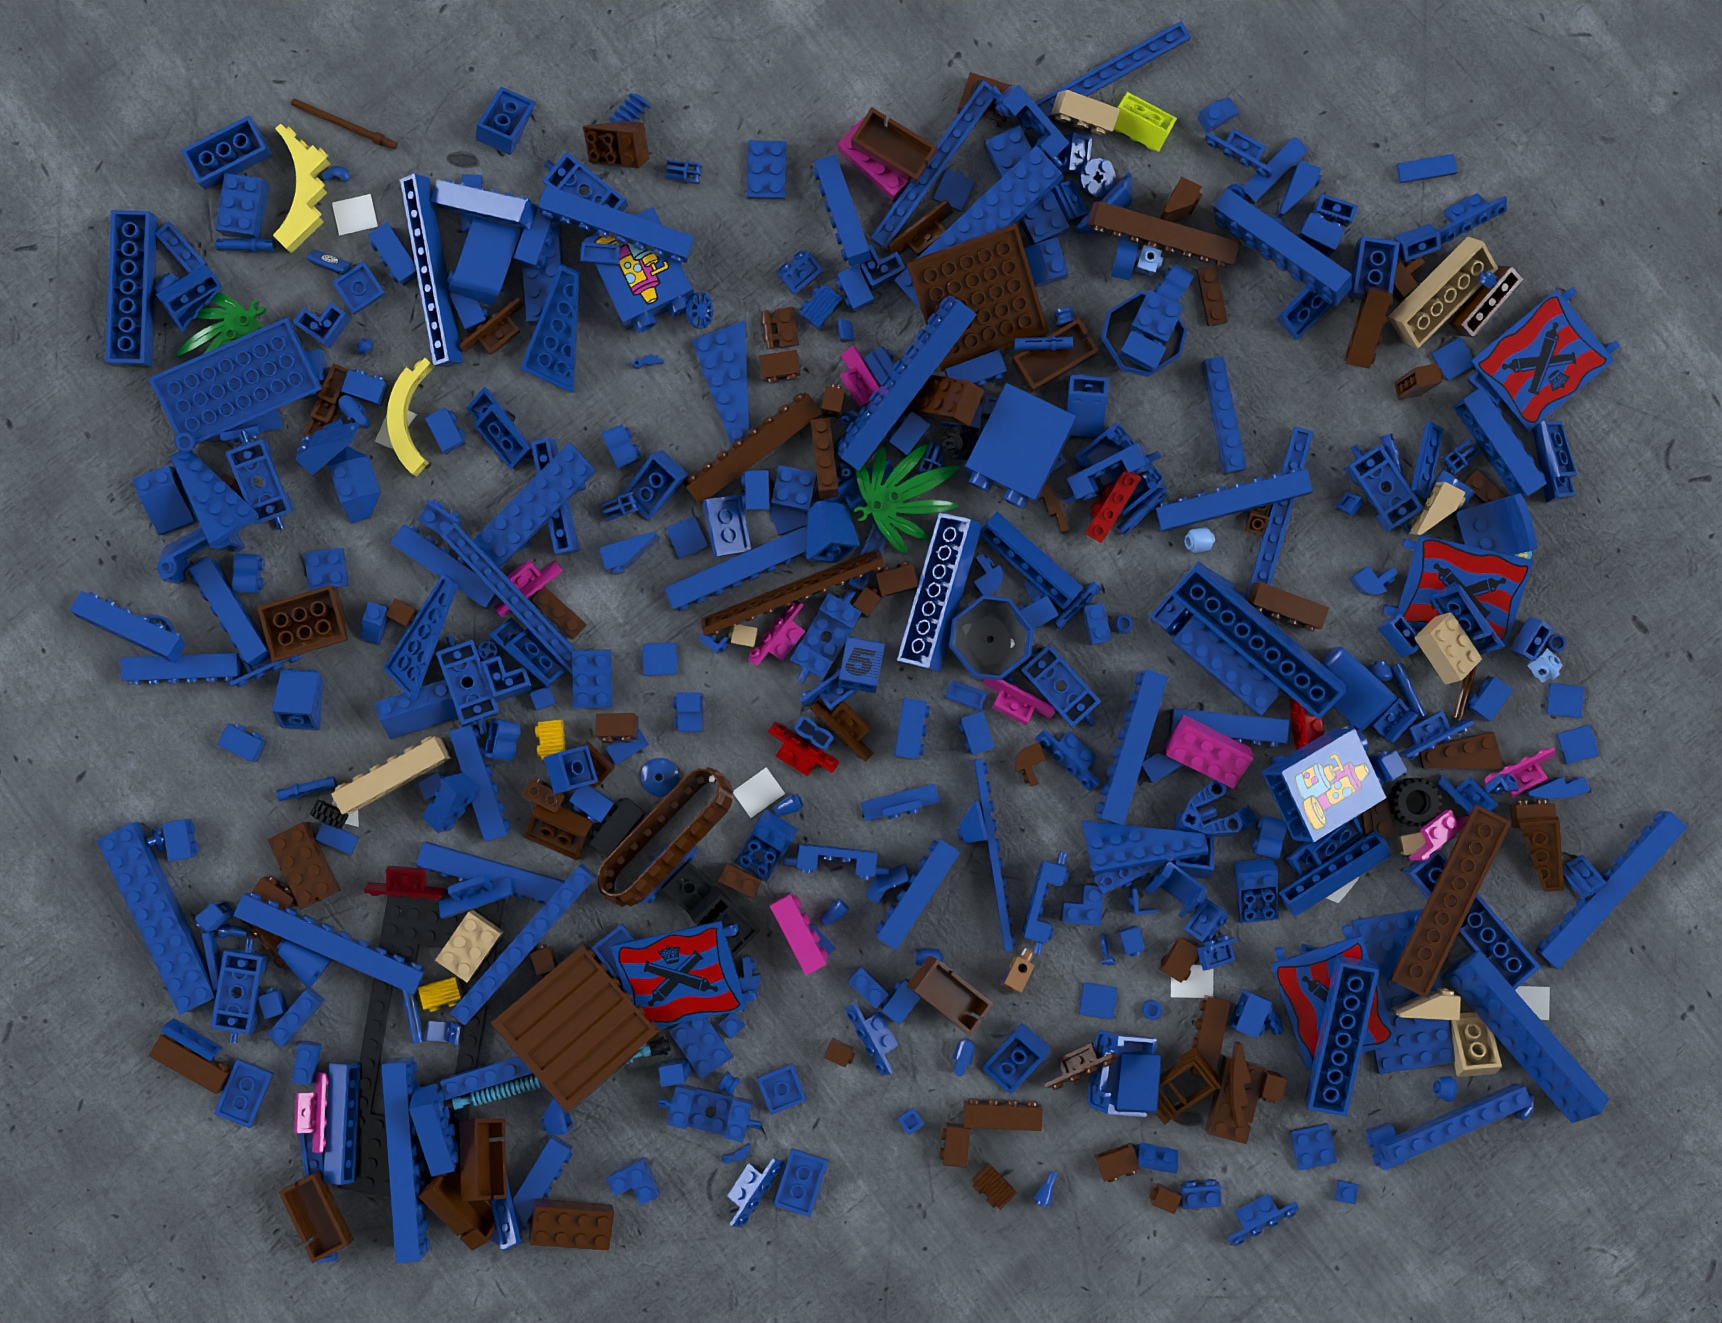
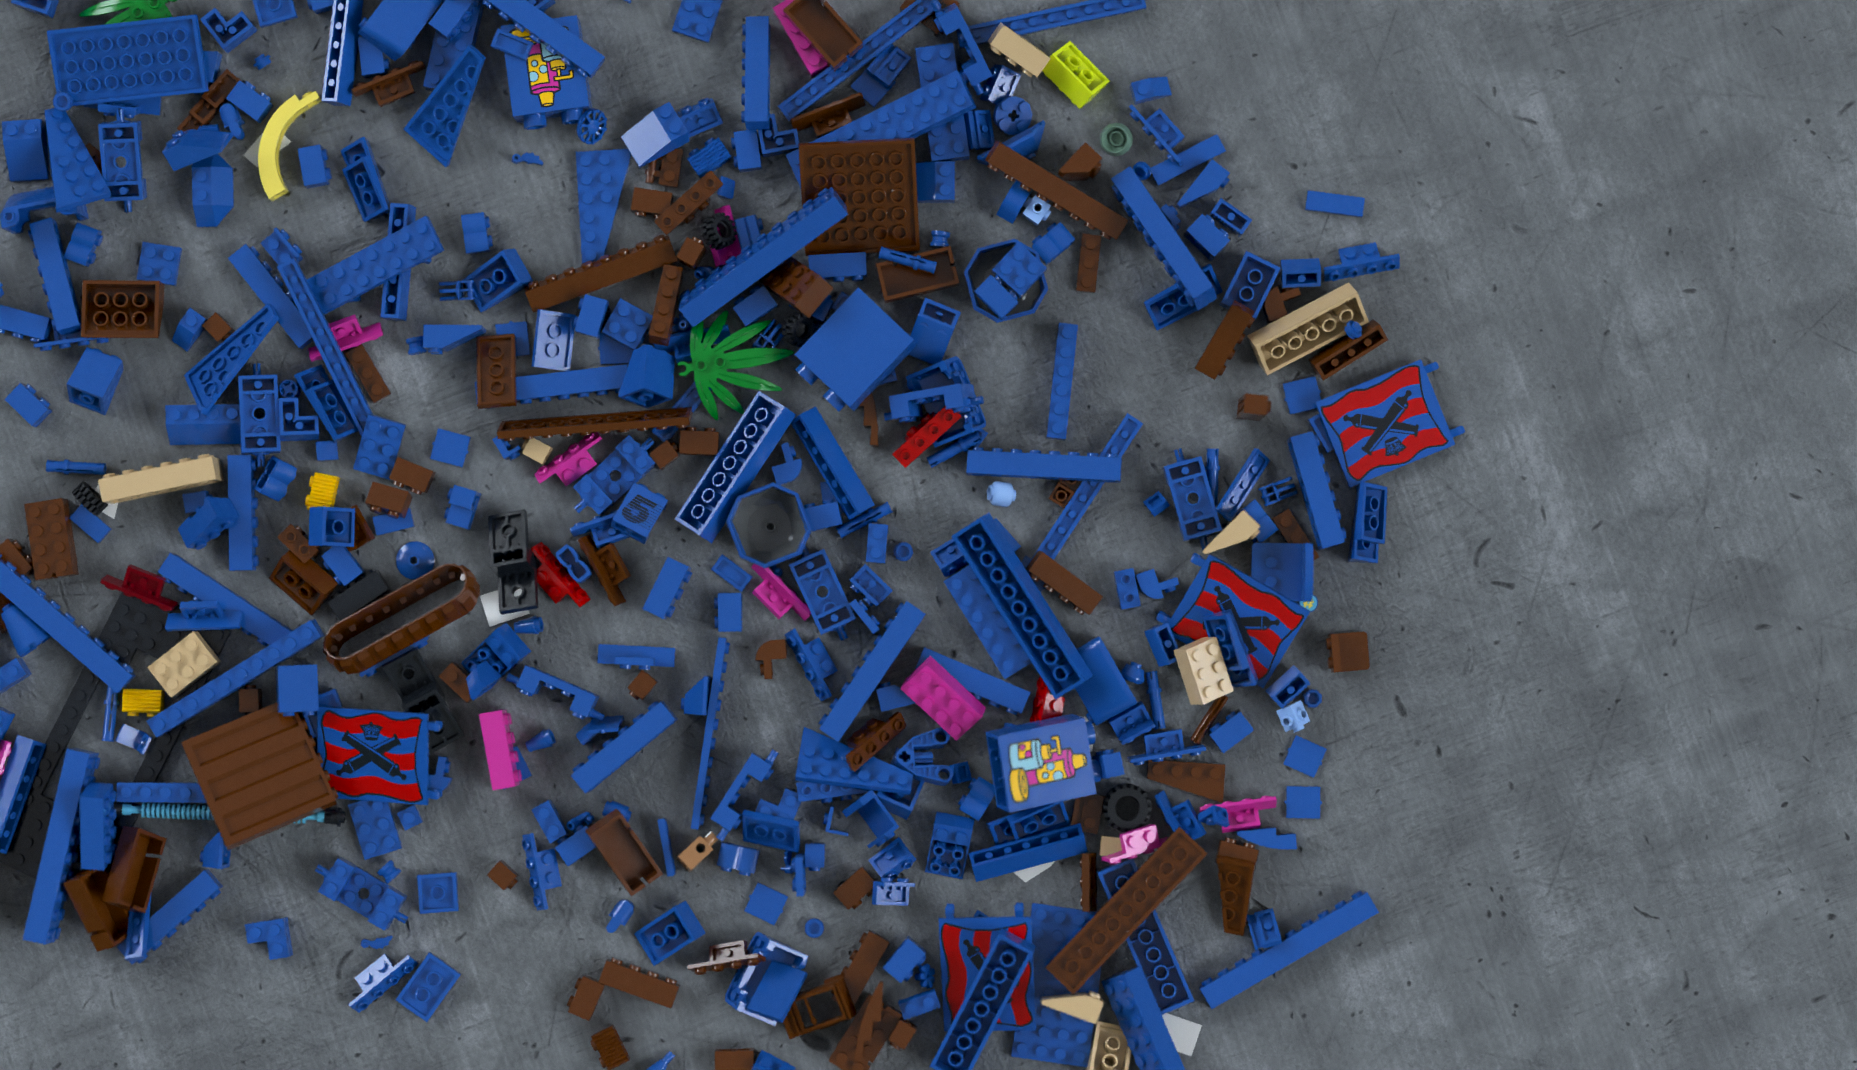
camera: 20 degrees right, 0 degrees up
(571, 1224) = (198, 957): reddish brown brick -> none
(586, 936) = (297, 689): none -> blue slope
(597, 571) = (415, 345): none -> blue wheel
(631, 696) = (411, 475): none -> reddish brown brick
(674, 1072) = (340, 844): blue brick -> none
(682, 571) = (496, 371): none -> reddish brown tile
(755, 749) = (513, 562): none -> black bracket
(760, 871) = (481, 679): none -> blue slope
(764, 300) = (655, 135): none -> slope
(816, 354) = (689, 203): none -> reddish brown bracket
(853, 372) = (711, 233): none -> black tyre
(894, 977) = (580, 819): none -> blue arm
(911, 1121) = (551, 961): blue plate -> none
(915, 829) = (642, 685): none -> reddish brown brick
(964, 166) = (888, 65): none -> blue plate
(987, 976) = (666, 846): none -> blue tile
(1059, 965) = (738, 857): none -> blue brick
(1083, 930) = (771, 831): none -> blue tile
(1103, 666) = (870, 585): none -> blue bracket
(1115, 700) = (861, 609): none -> blue plate
(1127, 968) = (799, 881): none -> blue plate
(1152, 811) = (872, 738): none -> reddish brown bracket
(1196, 986) = (864, 917): white sticker -> none
(1203, 165) = (1116, 139): none -> sand green hat
(1276, 1051) = (919, 1004): none -> blue brick
(1348, 593) = (1127, 589): none -> blue brick
(1400, 884) = (1088, 882): none -> reddish brown plate
(1576, 588) = (1348, 651): none -> reddish brown bracket

